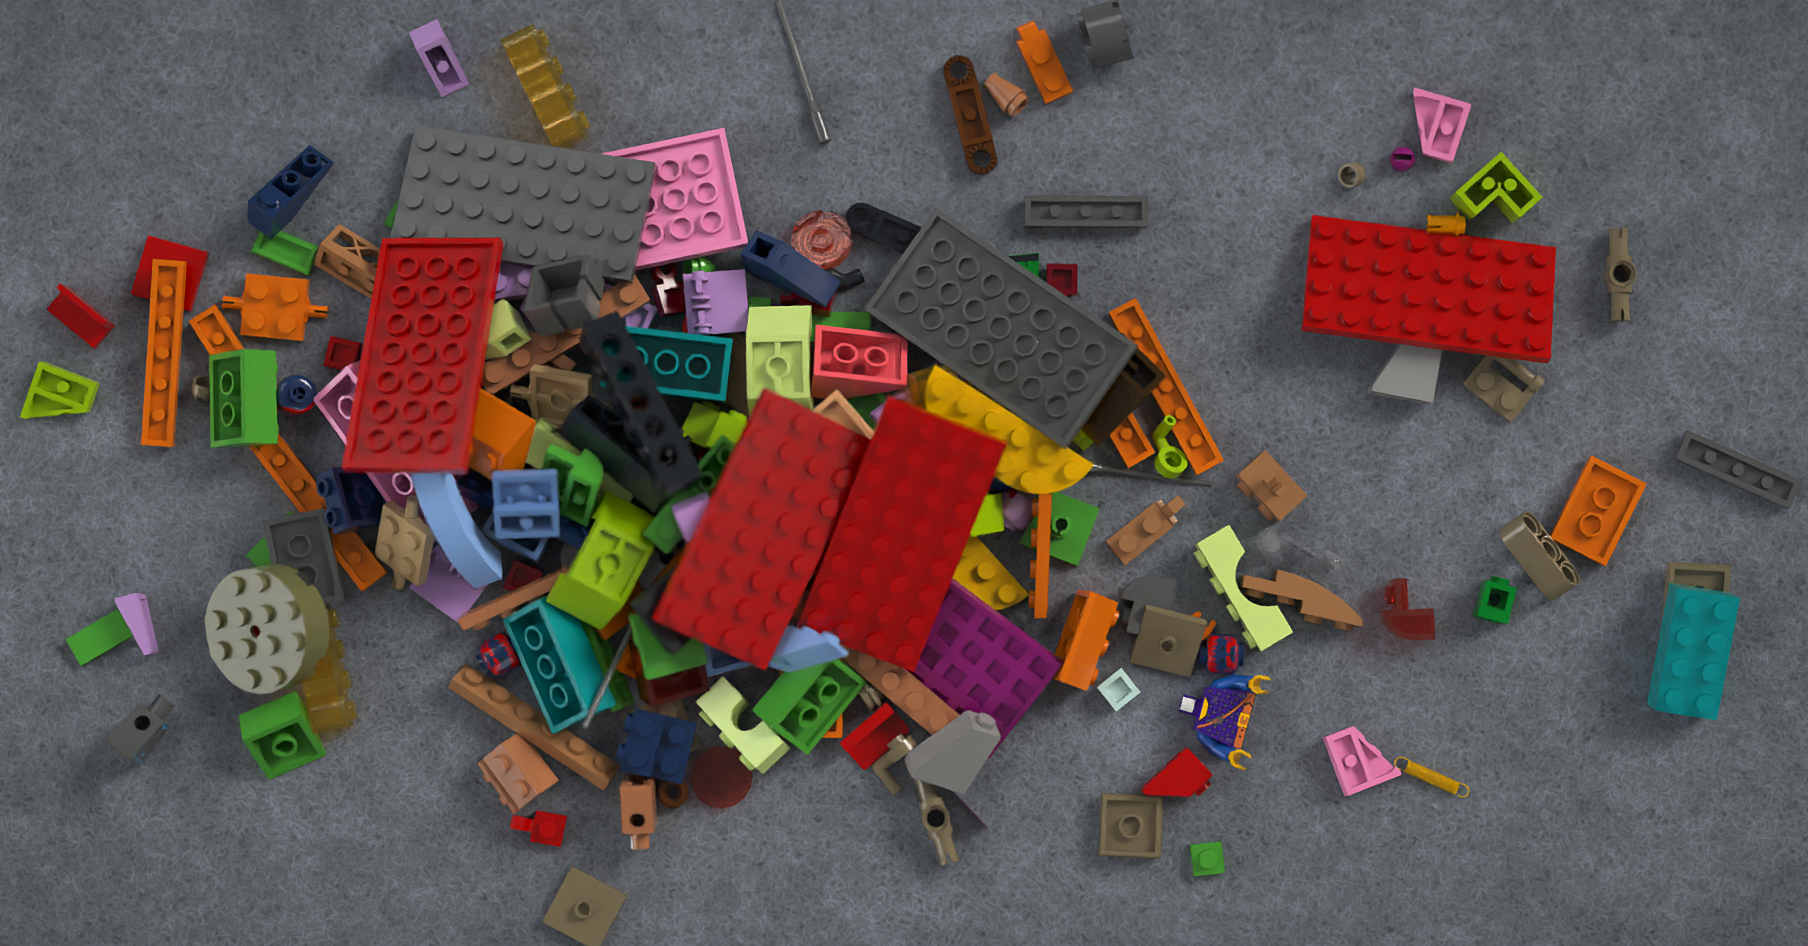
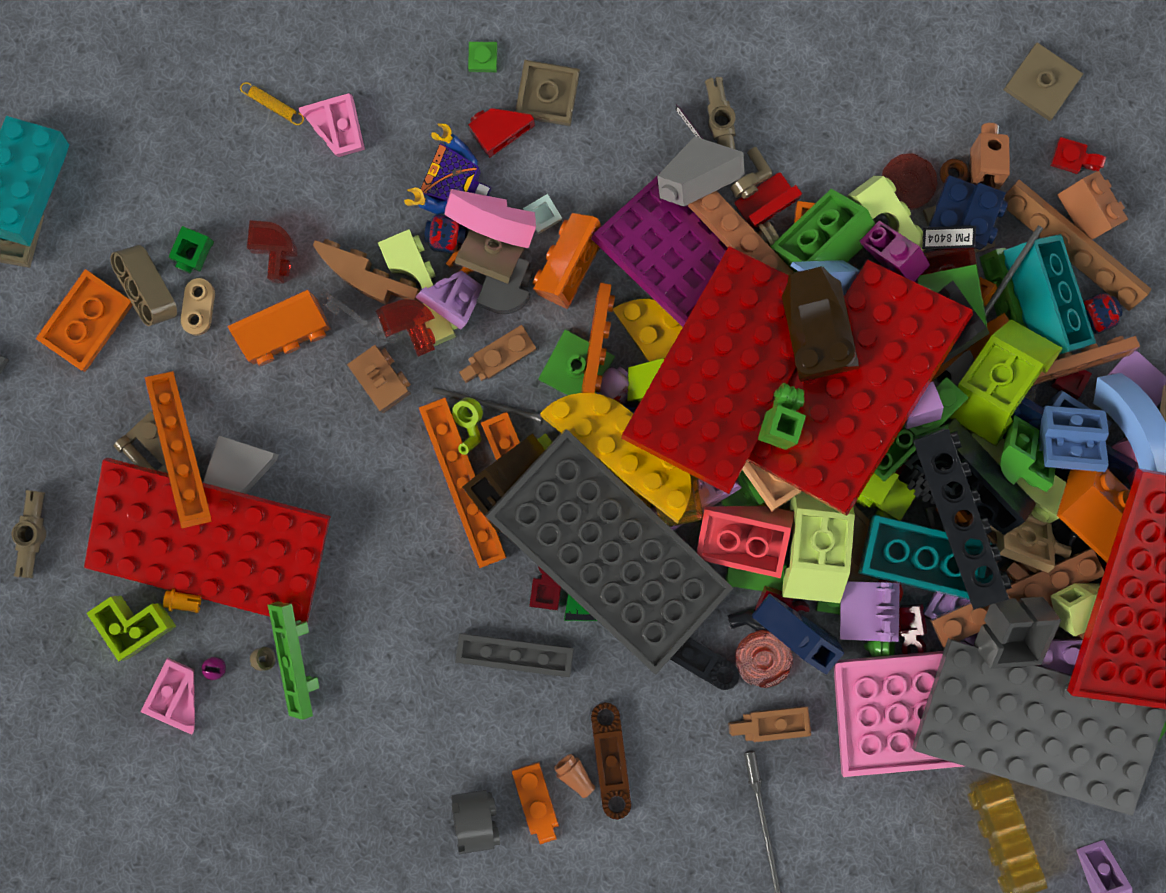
camera: 170 degrees left, 0 degrees up
(676, 712) = (949, 237): none -> sticker
(734, 685) = (895, 251): none -> magenta slope
(803, 173) = (773, 724): none -> medium nougat hinge
(812, 587) = (818, 324): none -> dark brown slope
(842, 474) = (782, 422): none -> bright green brick
(1173, 674) = (491, 217): none -> bright pink slope
(1202, 581) = (452, 298): none -> lavender wing
(1250, 550) = (408, 316): none -> clear red brick
(1313, 154) = (290, 660): none -> bright green hinge
(1383, 525) = (280, 328): none -> orange slope
(1473, 380) = (177, 450): none -> orange plate
(1478, 541) = (200, 306): none -> tan plate

